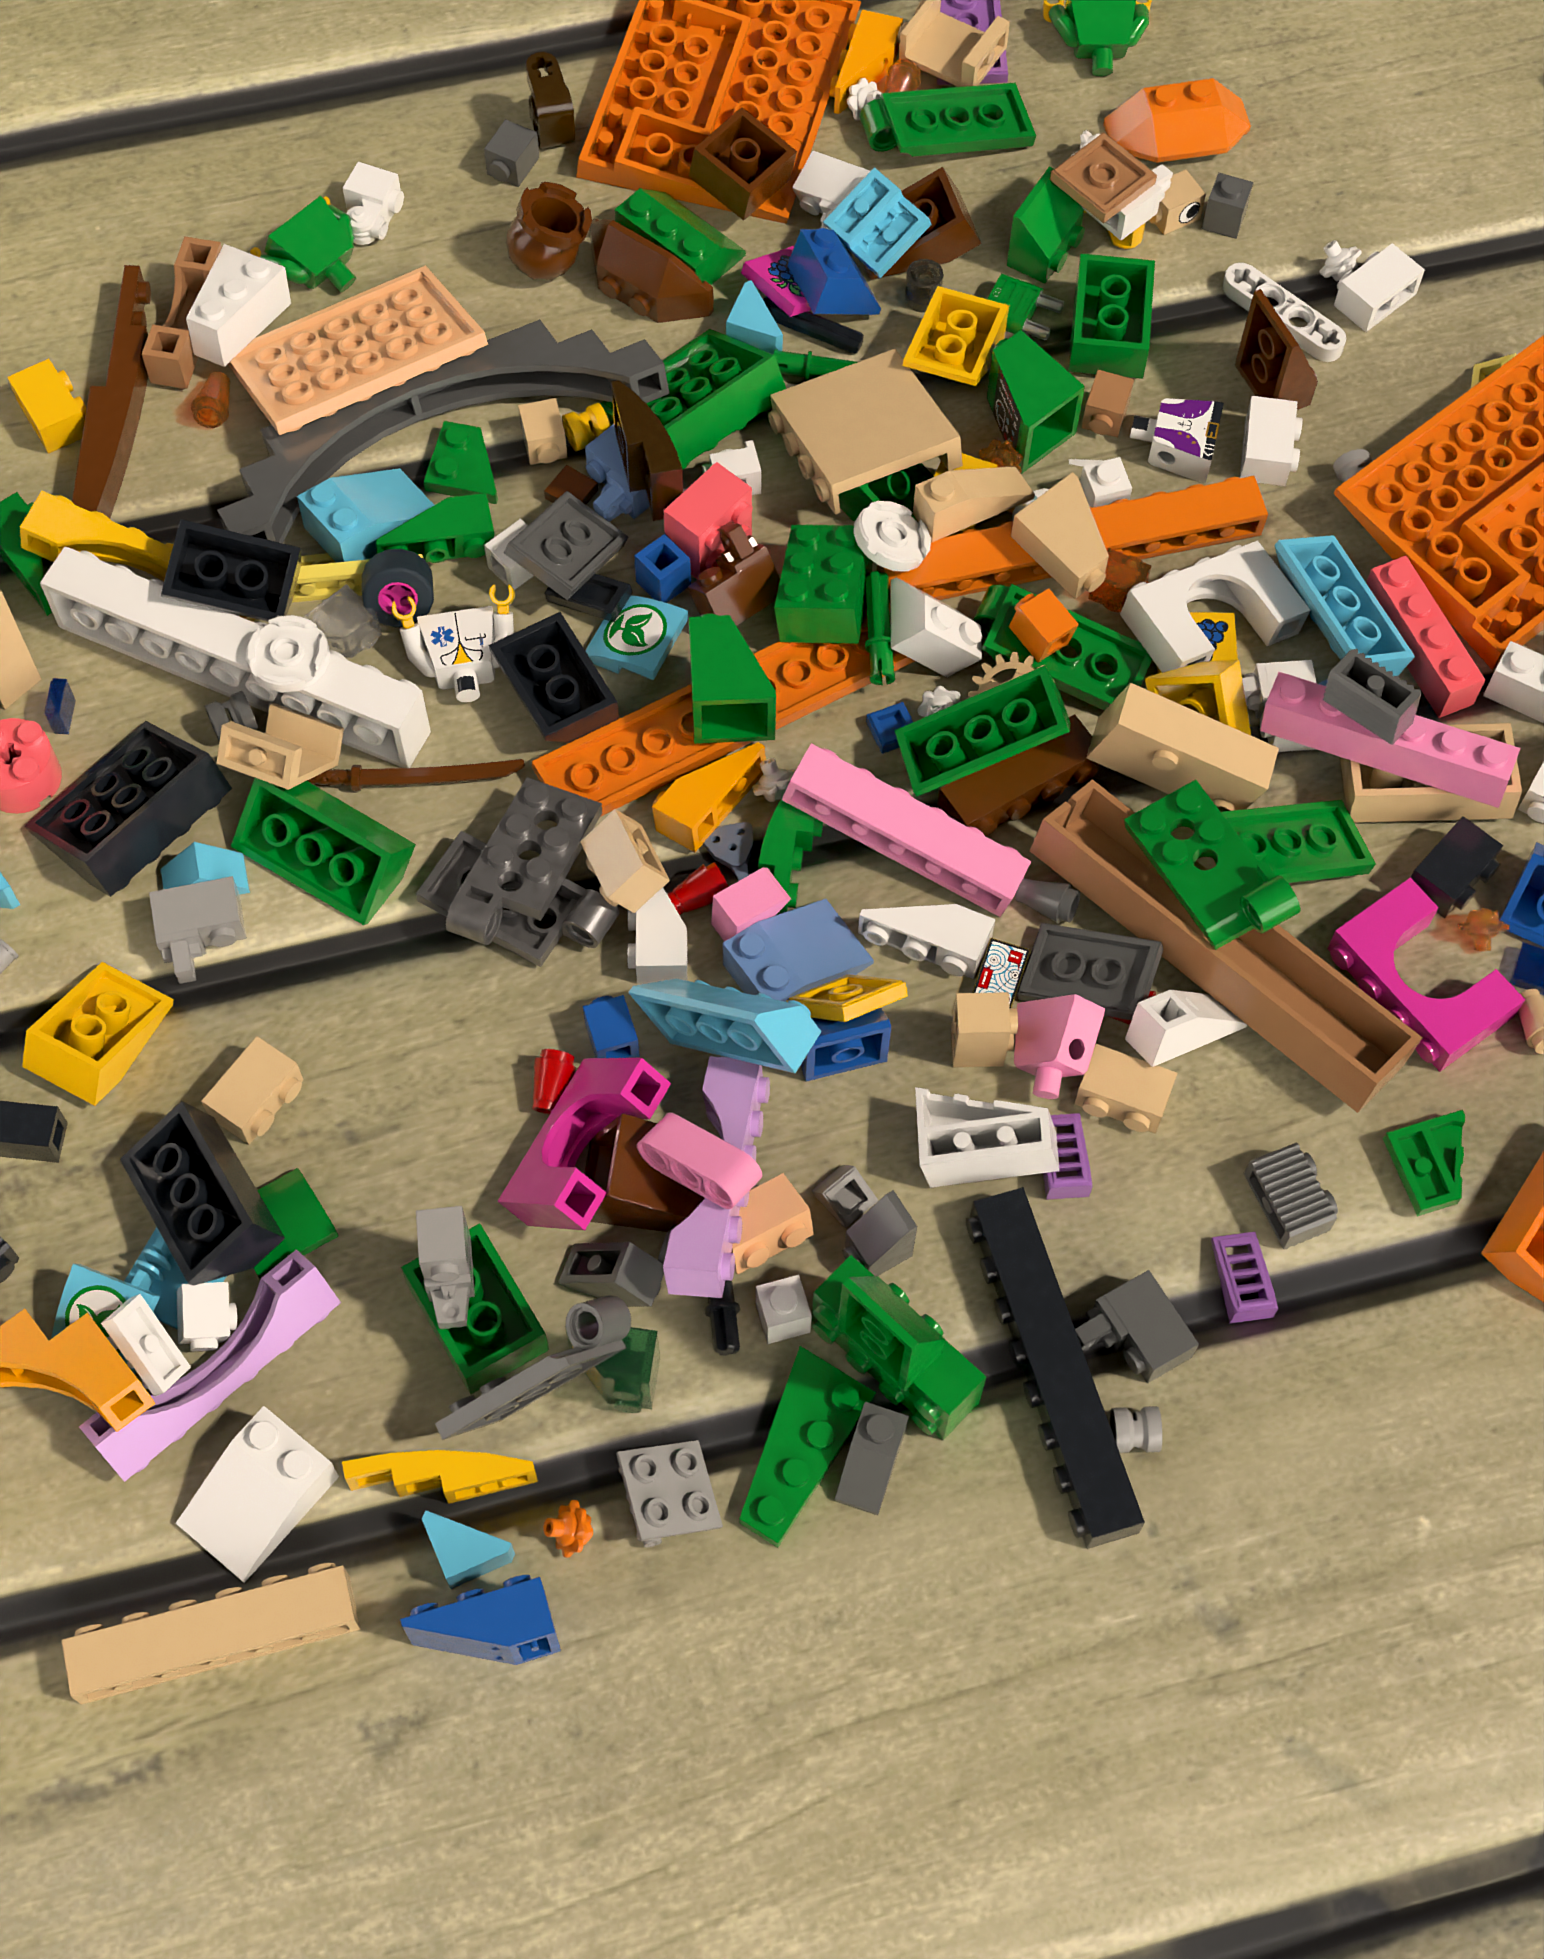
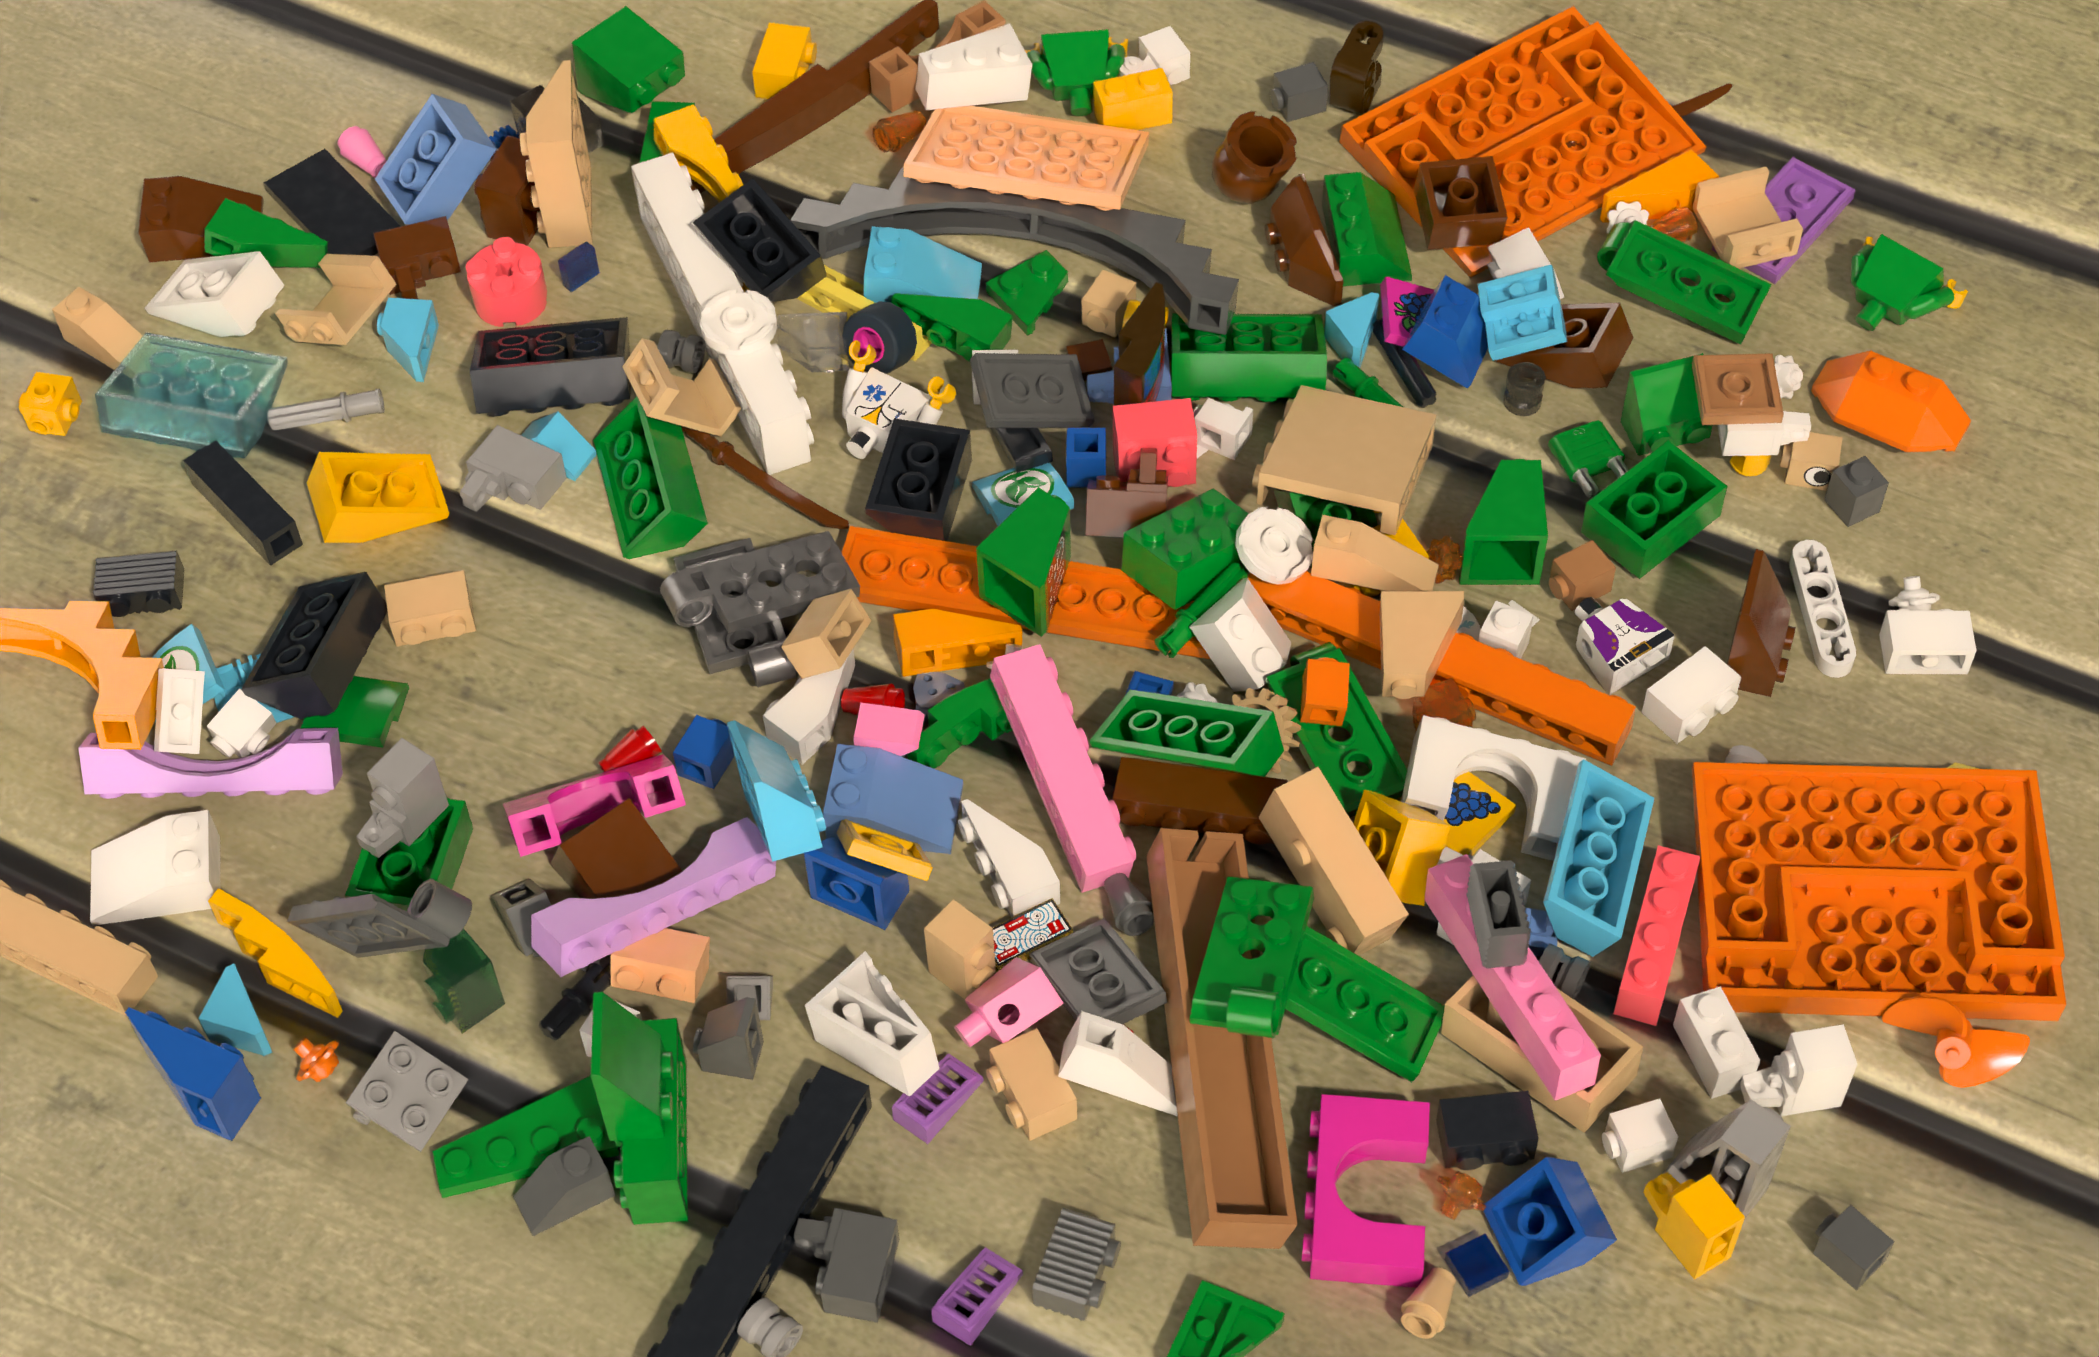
camera: 45 degrees right, 10 degrees down
(388, 246) = (1134, 100): none -> yellow brick
(699, 1160) = (639, 867): bright pink beam -> none
(957, 336) = (1495, 431): yellow slope -> none

